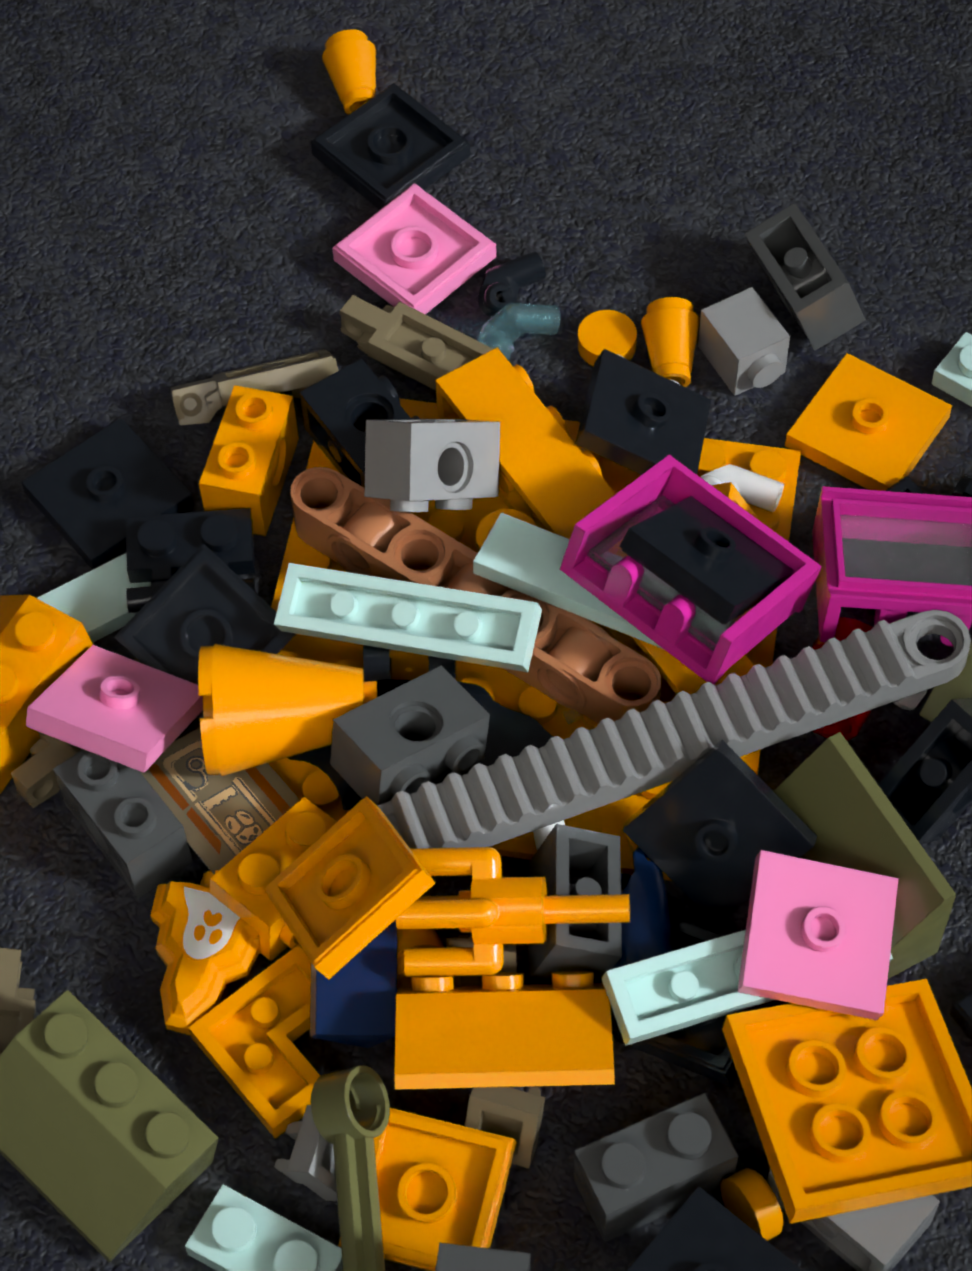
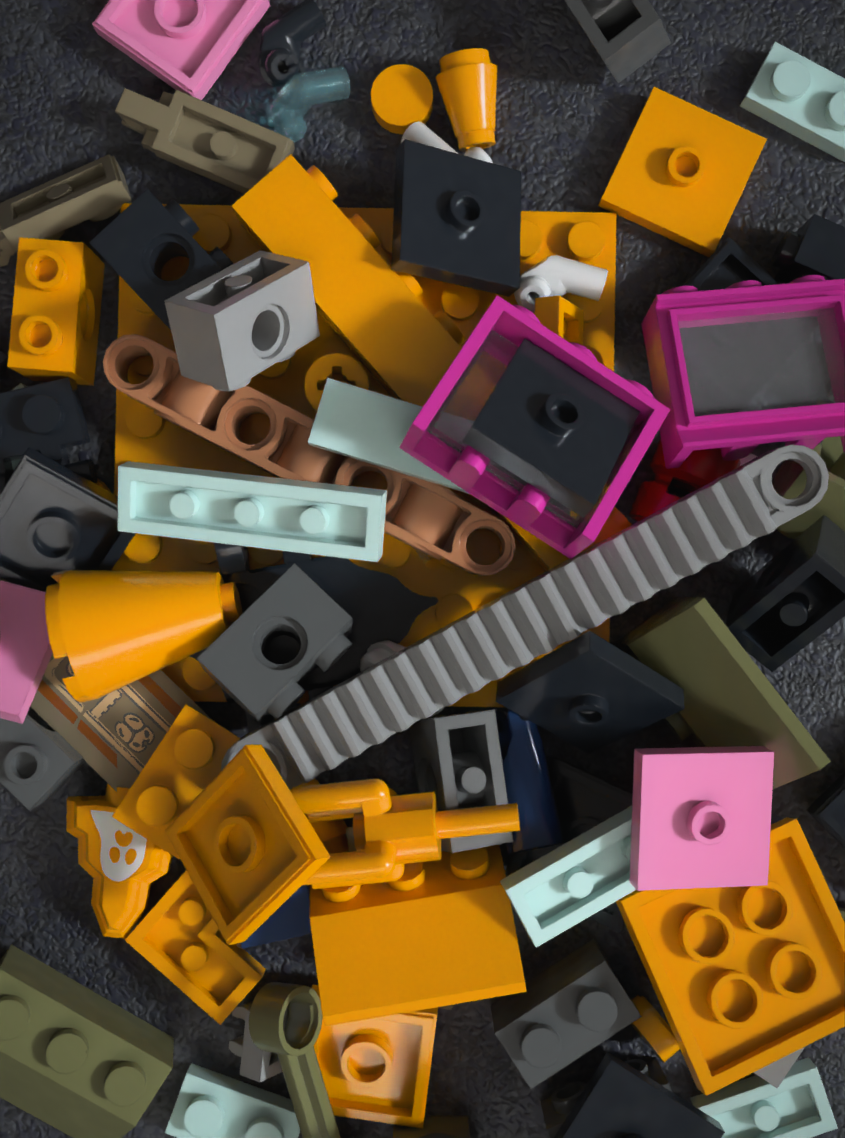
camera: 10 degrees left, 30 degrees up
(743, 341) = (547, 89): light grey brick -> none

